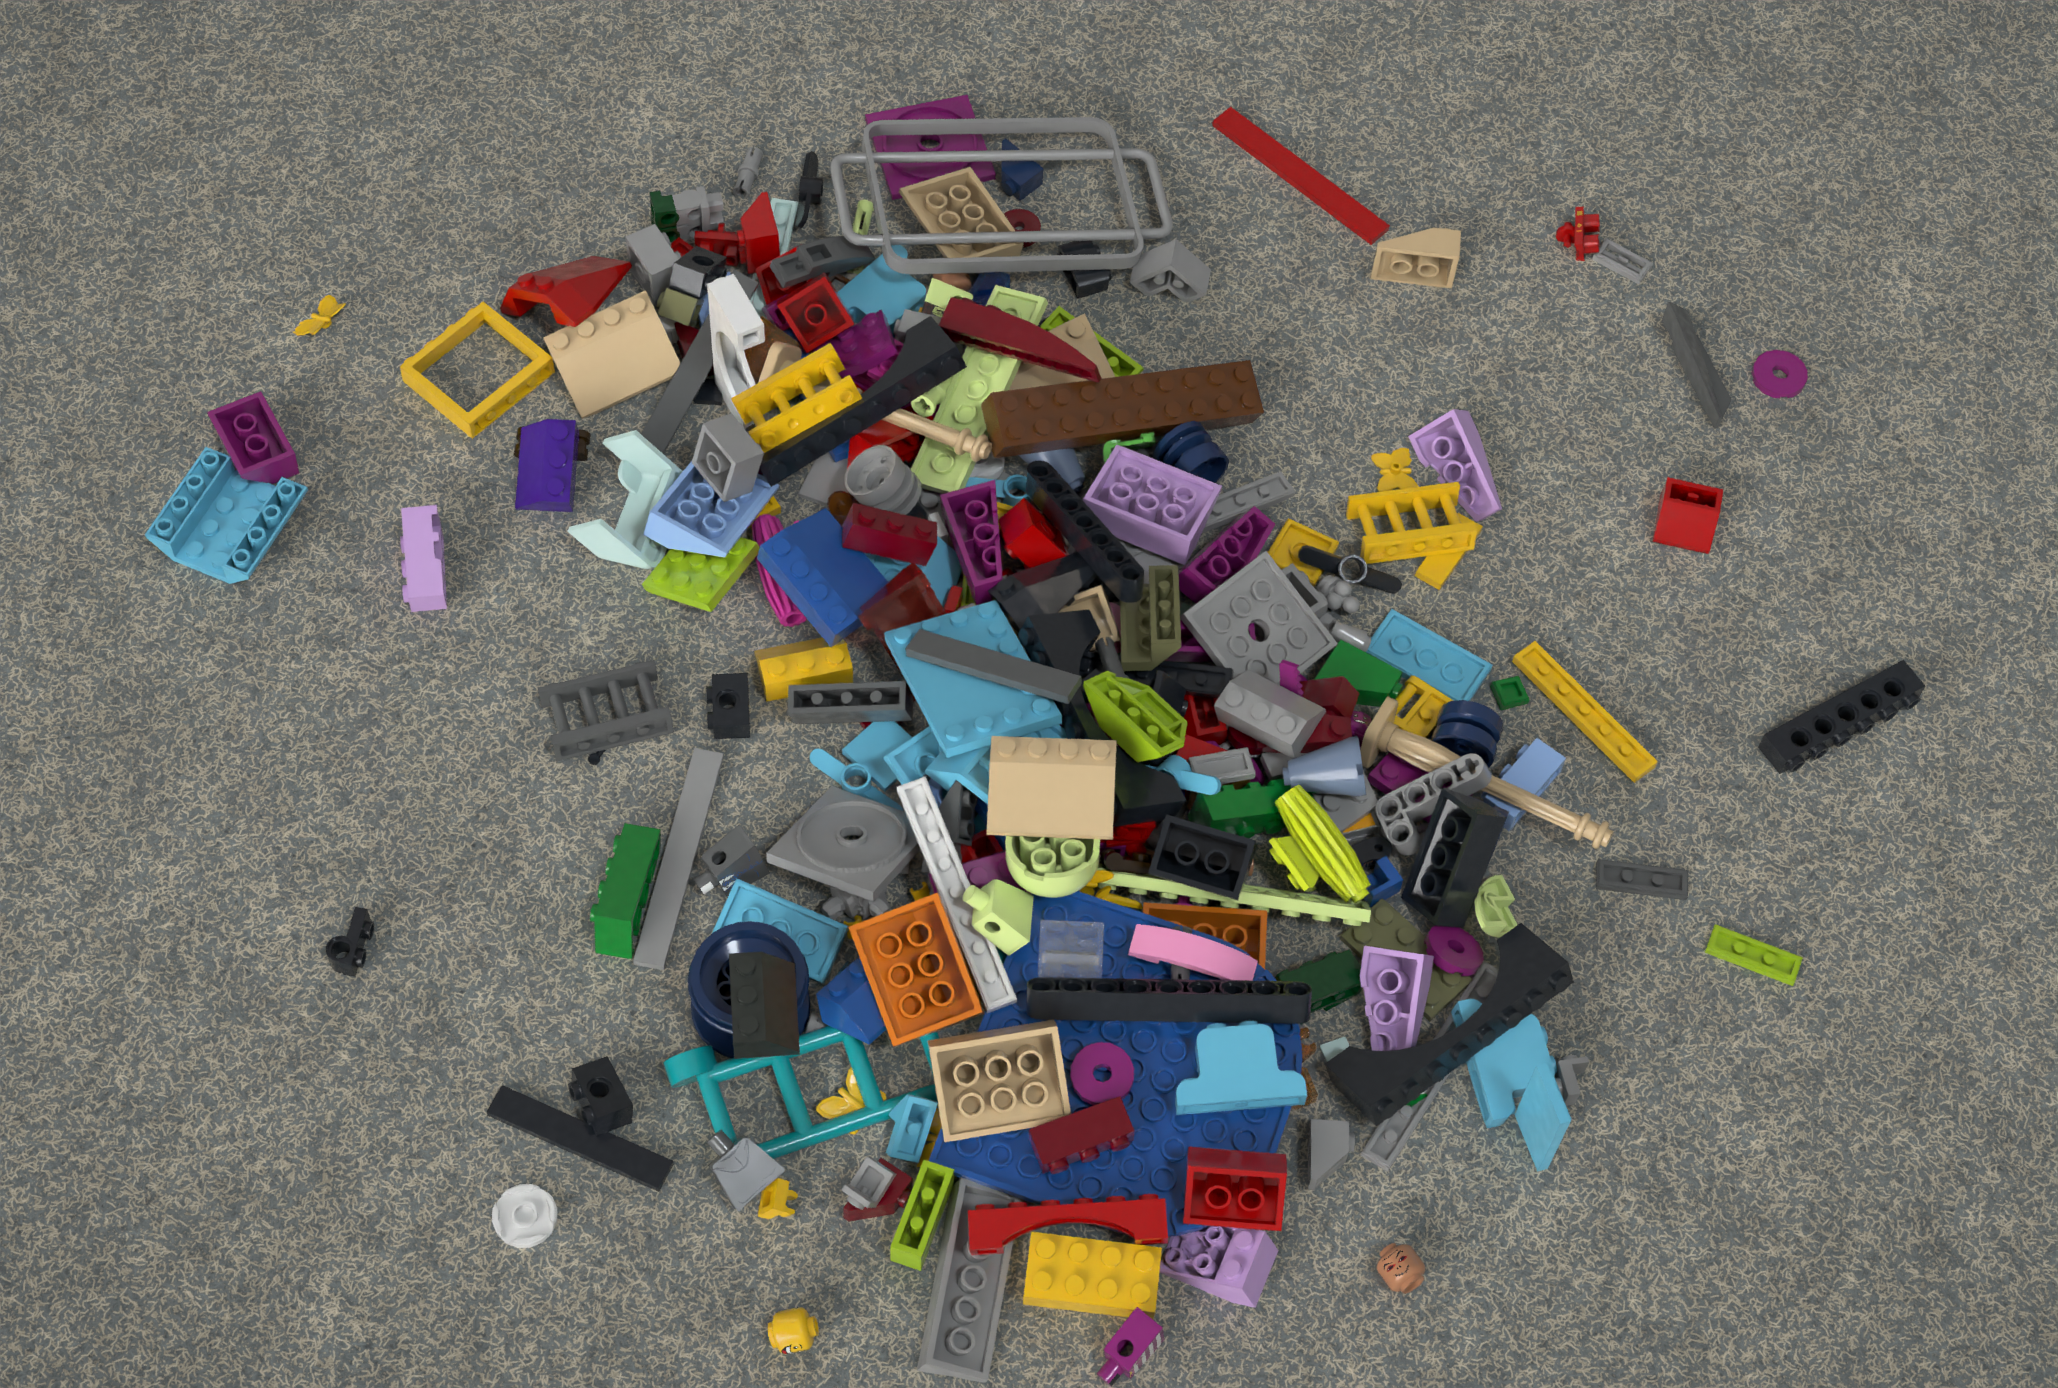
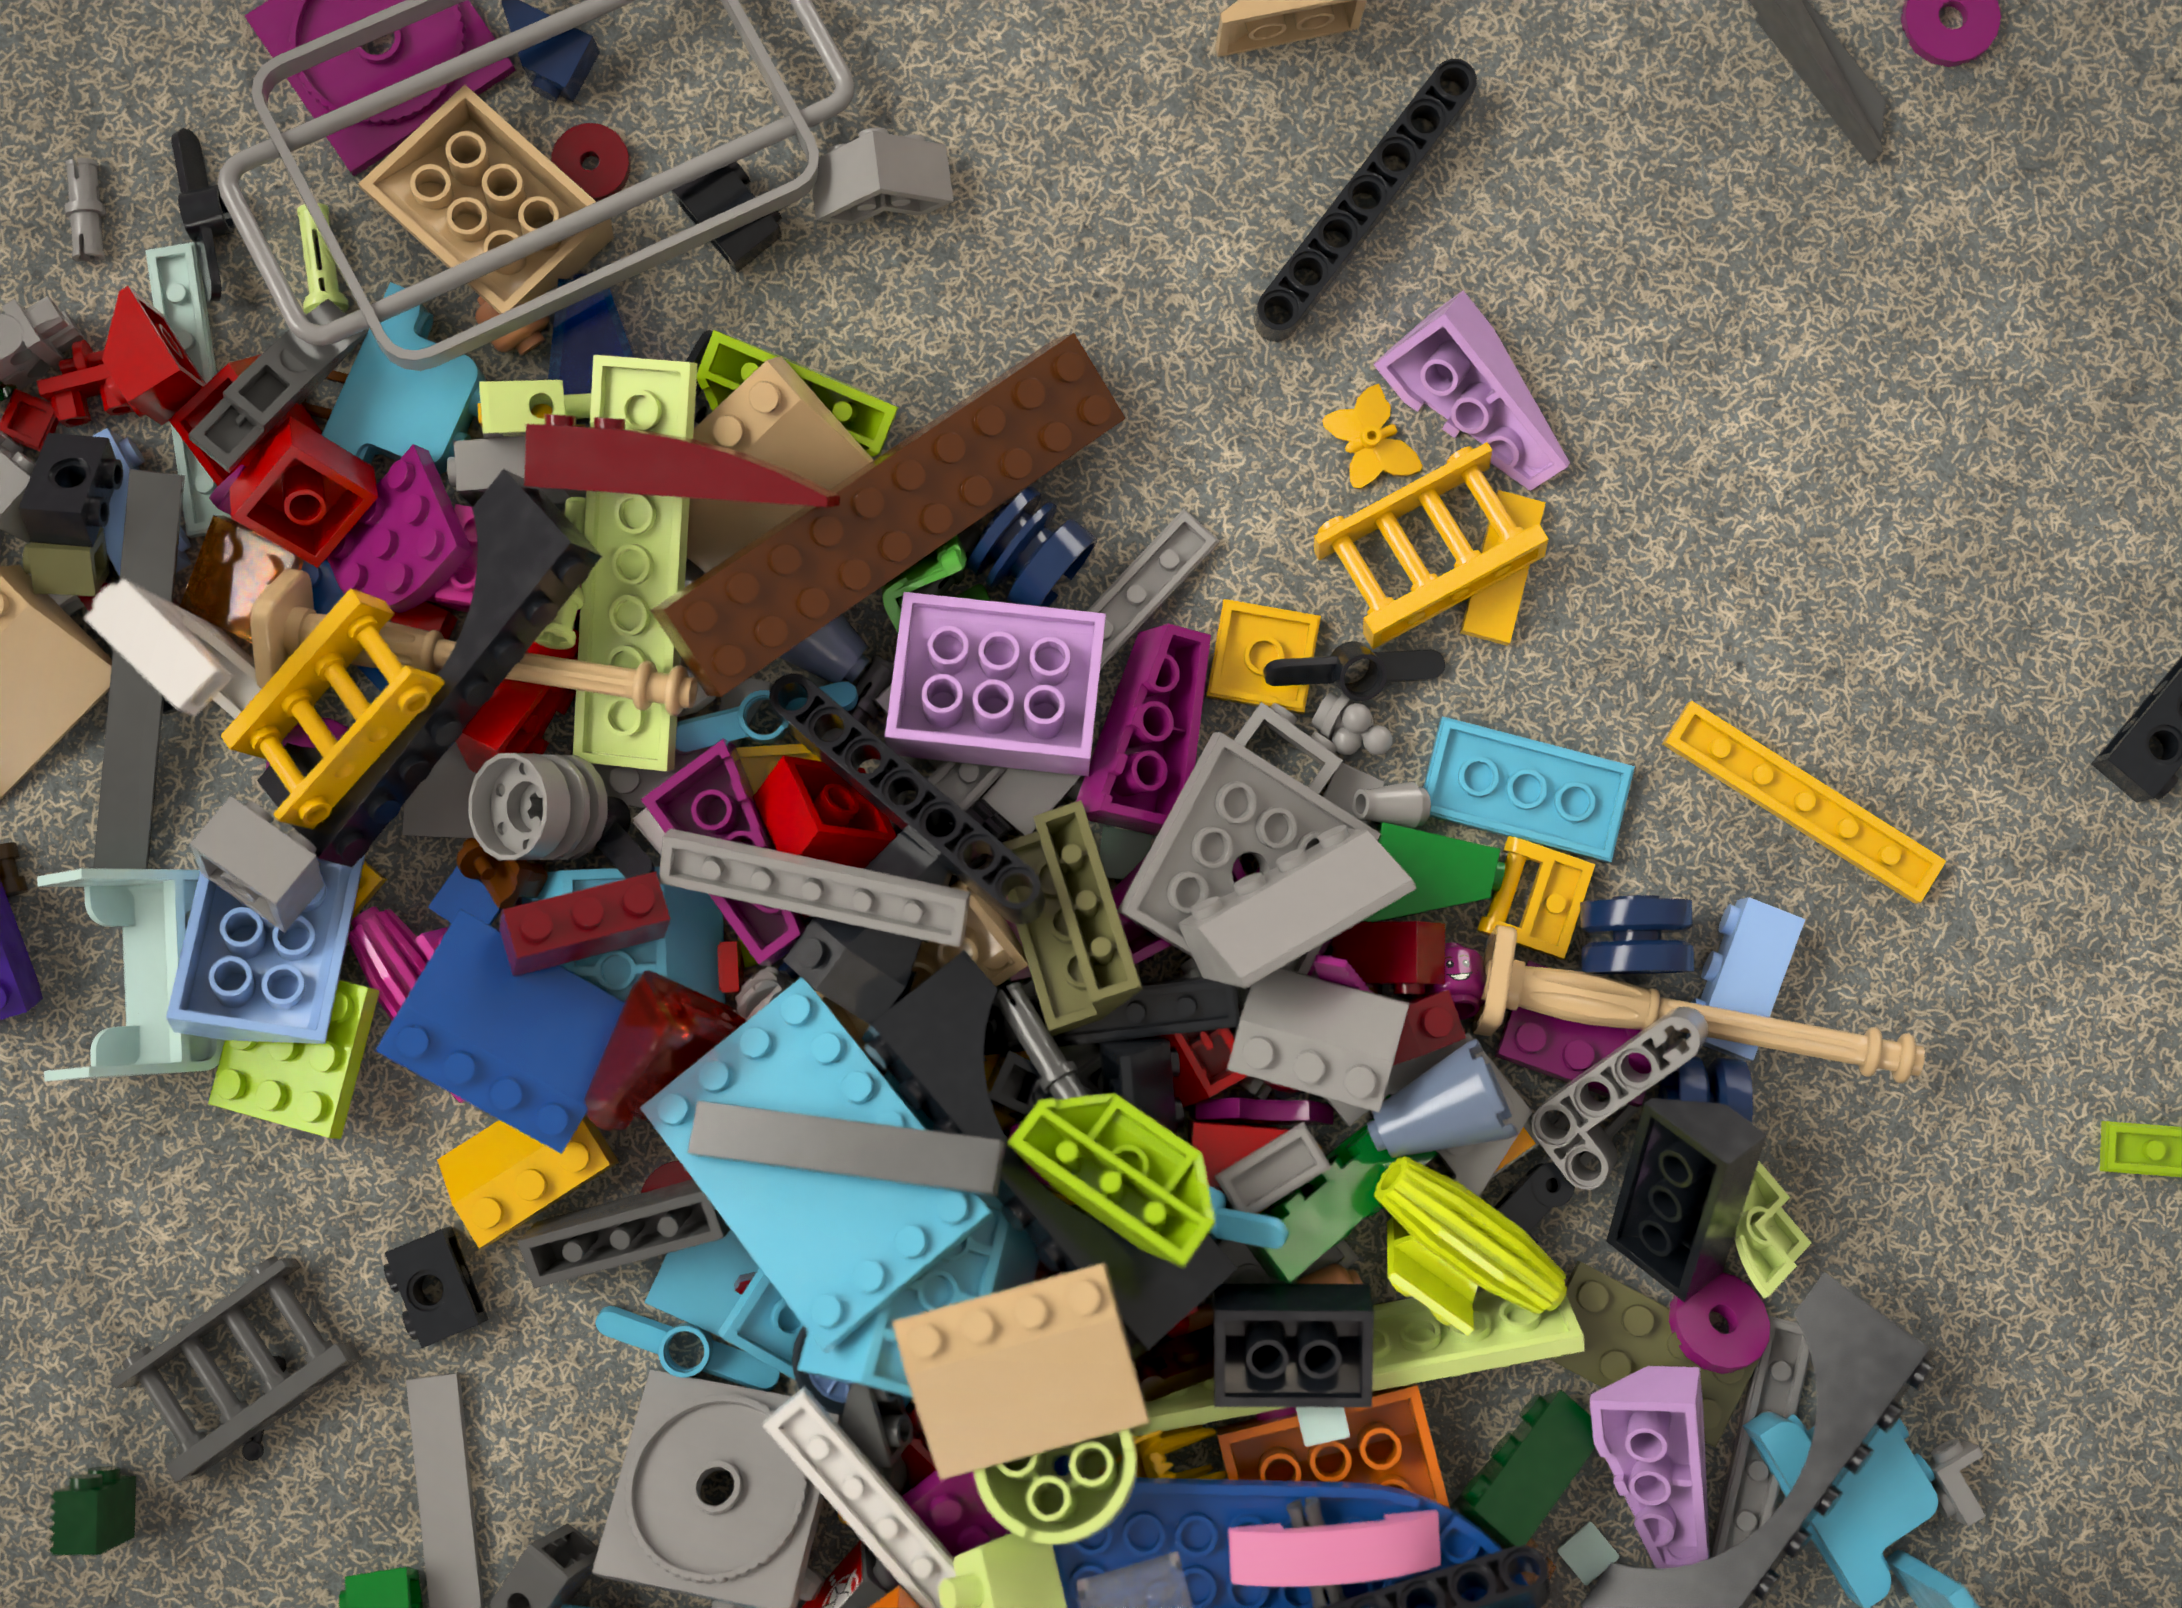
camera: 20 degrees left, 25 degrees up
(501, 747) = (93, 1512): none -> dark green brick
(1020, 551) = (814, 887): none -> light grey plate
(1206, 909) = (1322, 1424): none -> light aqua piece
(1271, 643) = (1293, 906): none -> light grey slope
(1384, 882) = (1570, 1238): blue panel -> none
(1427, 360) = (1372, 179): none -> black beam
(1509, 693) = (1674, 805): green tile -> none
(1642, 879) = (1975, 1078): dark grey tile -> none
(1687, 515) = (1876, 369): red slope -> none

